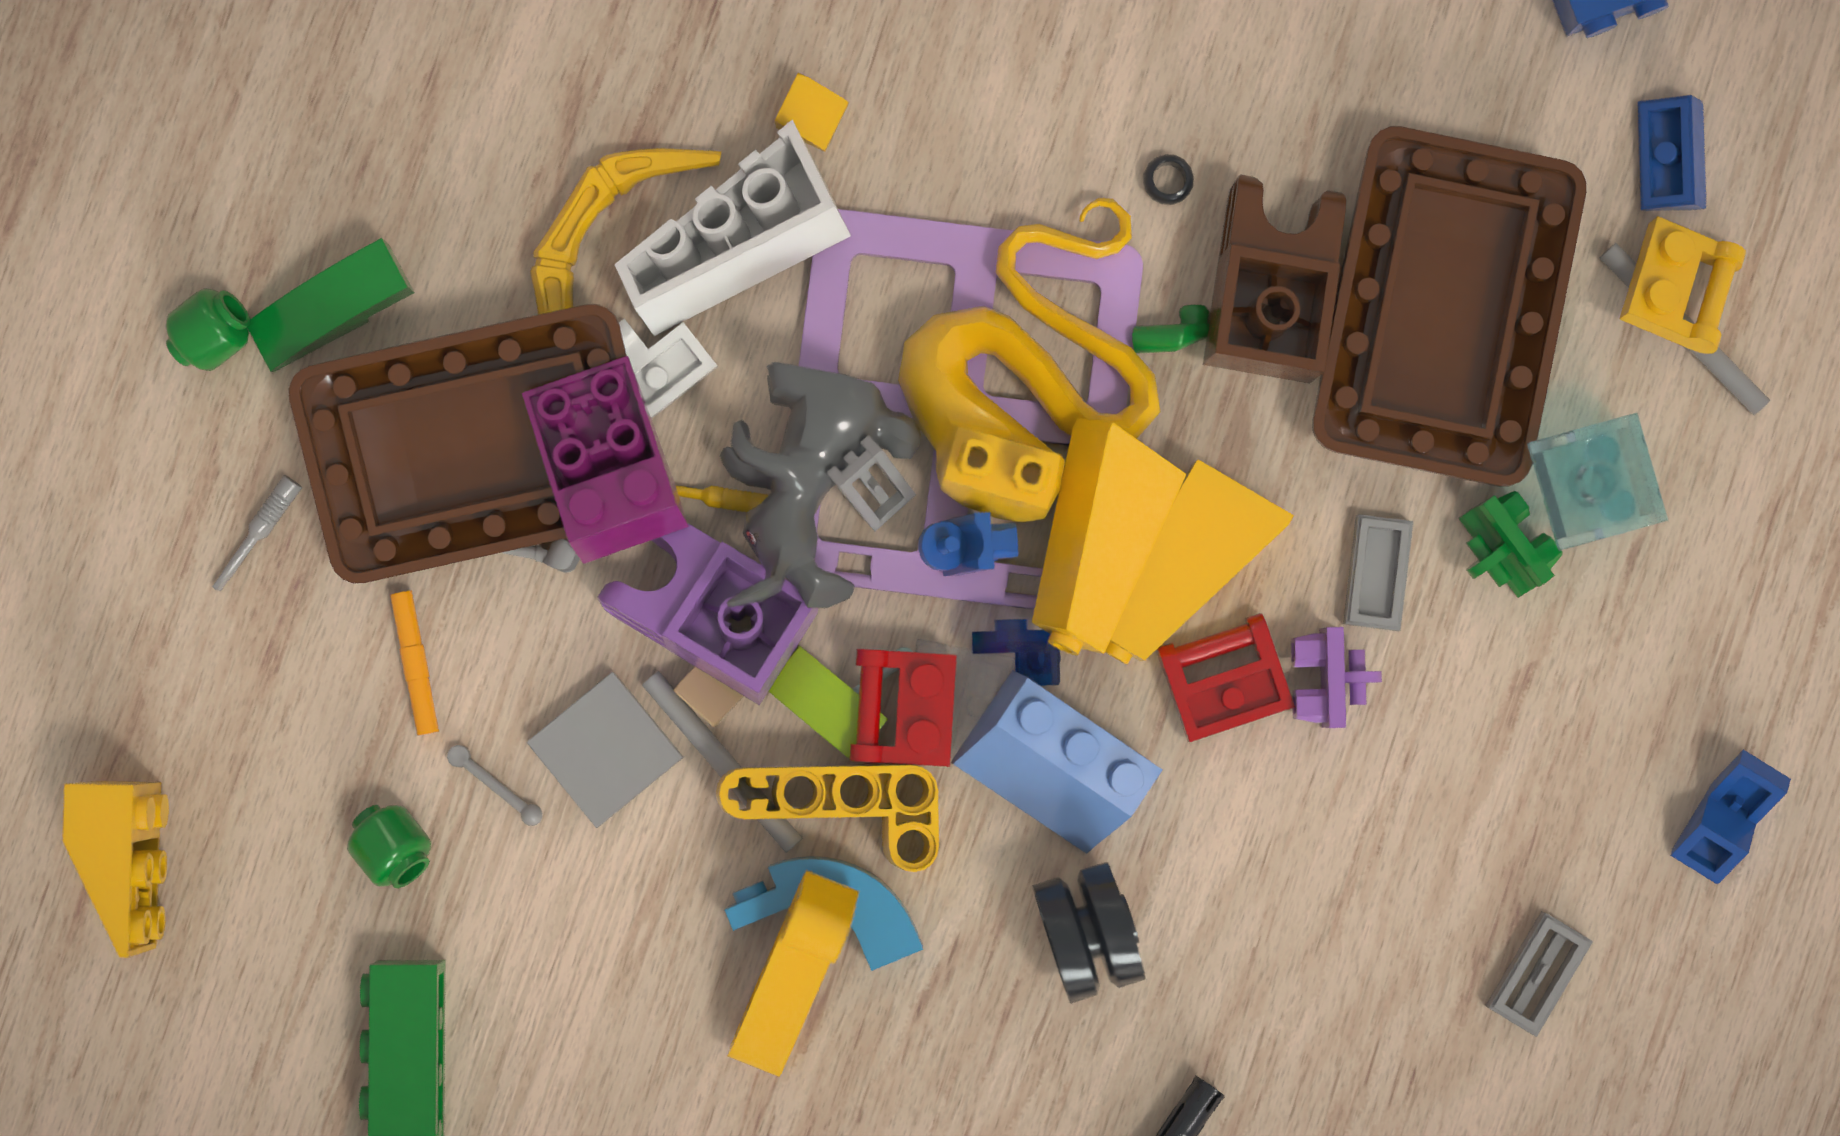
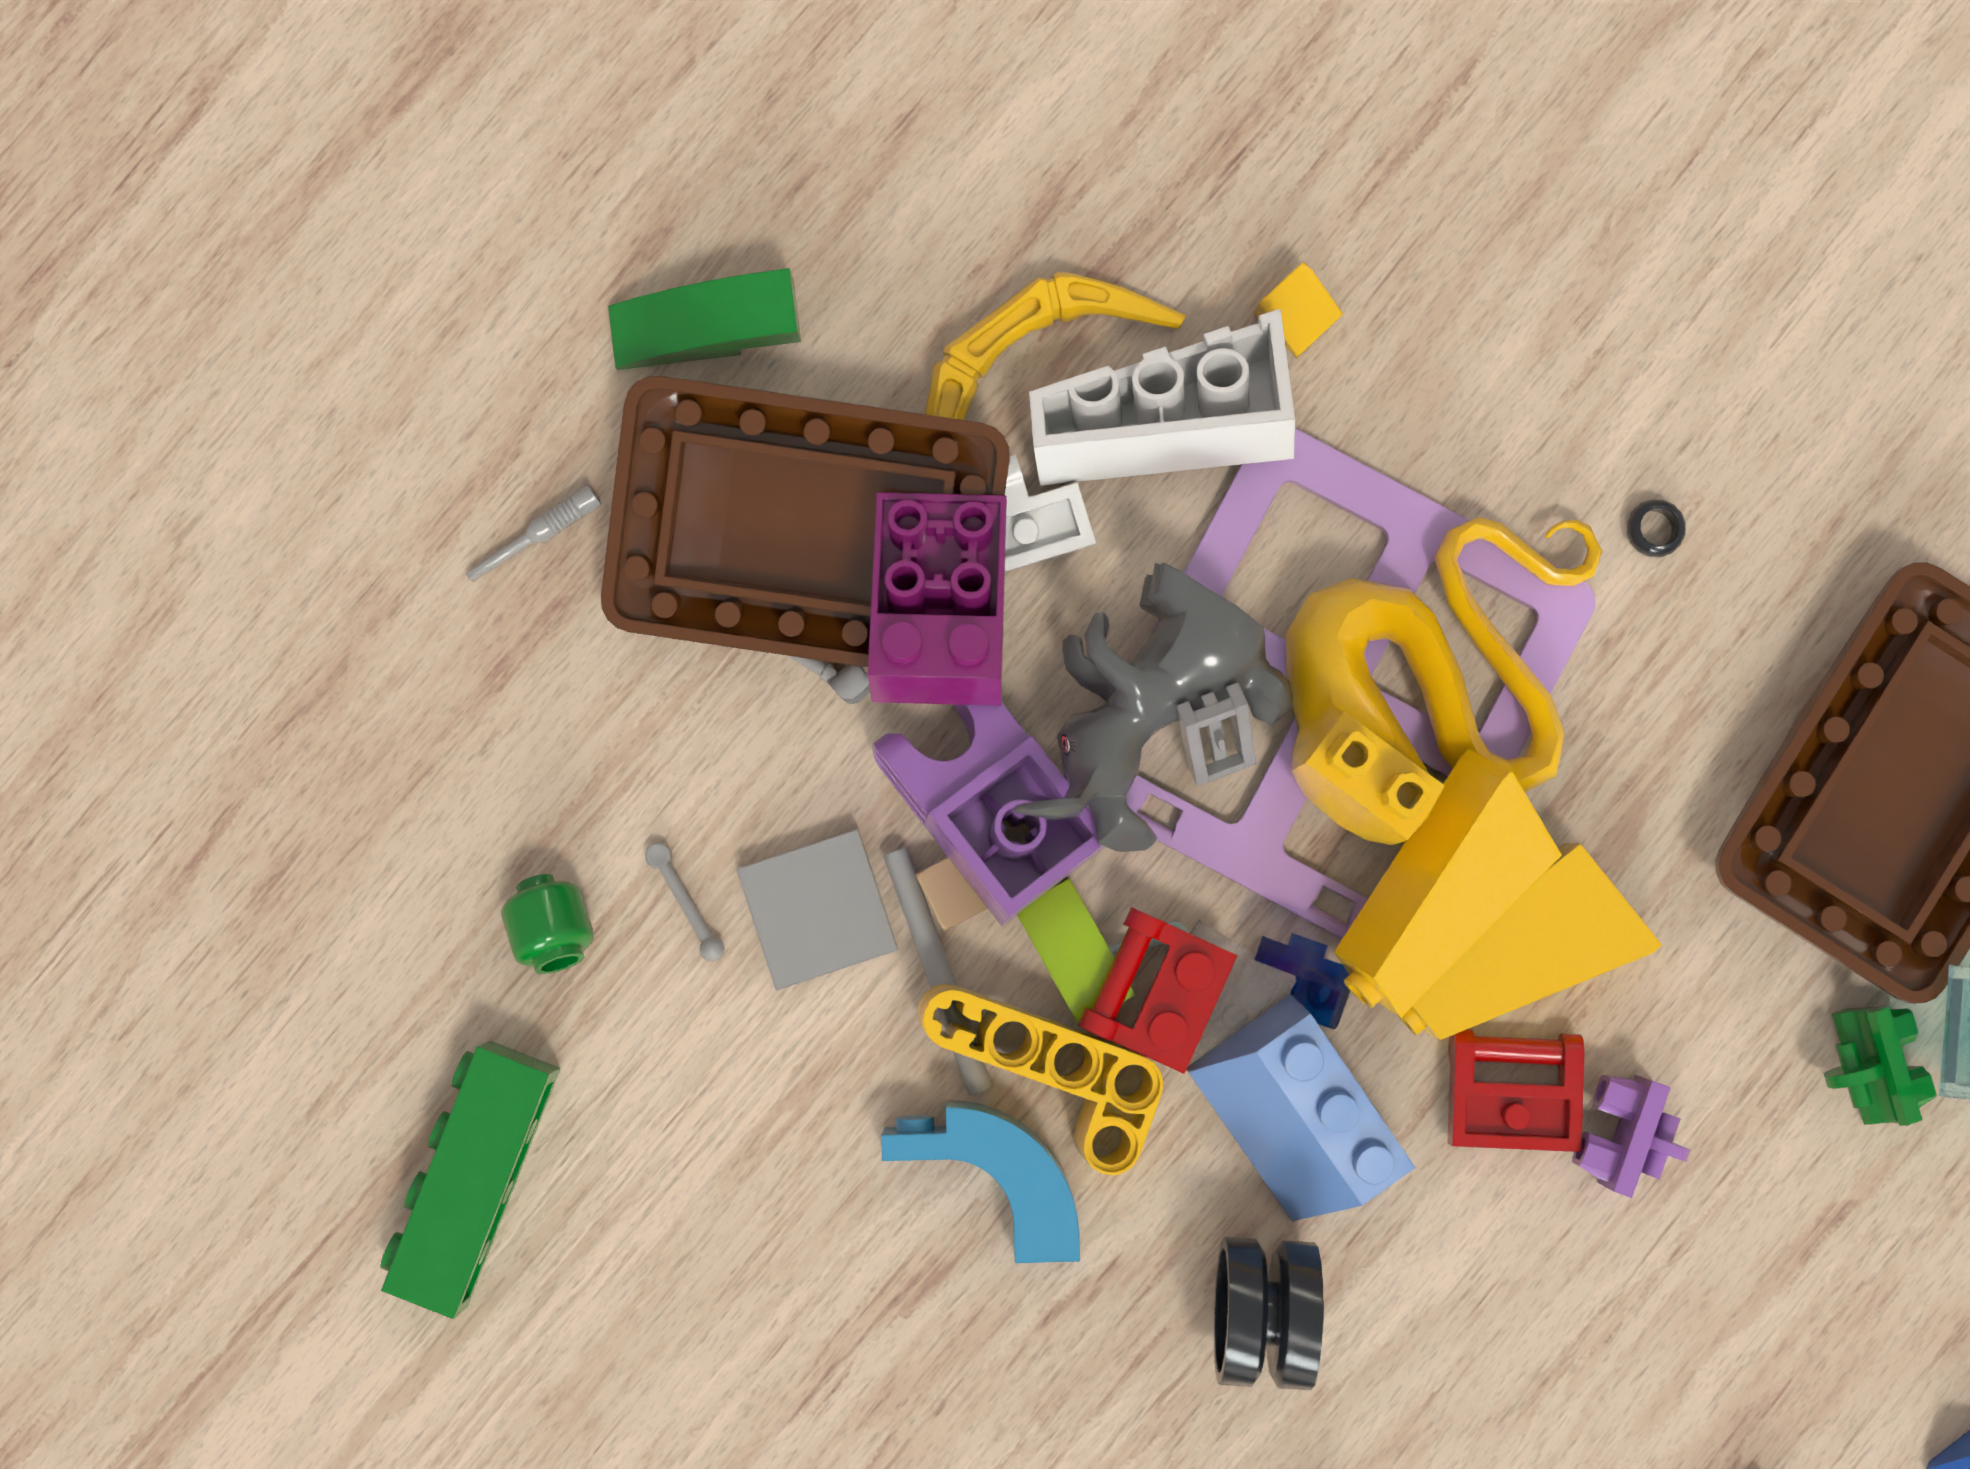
camera: 30 degrees right, 0 degrees up
(115, 849) = (252, 825): yellow slope -> none
(207, 329) = (565, 296): green head -> none
(414, 663) = (649, 737): light orange piece -> none
(723, 497) = (1050, 689): yellow piece -> none
(793, 972) = (962, 1205): yellow beam -> none
(967, 544) = (1297, 841): blue hips -> none
(1173, 337) = (1598, 700): green arm -> none
(1278, 270) = (1751, 679): reddish brown brick -> none
(1378, 572) = (1723, 1039): light grey tile -> none

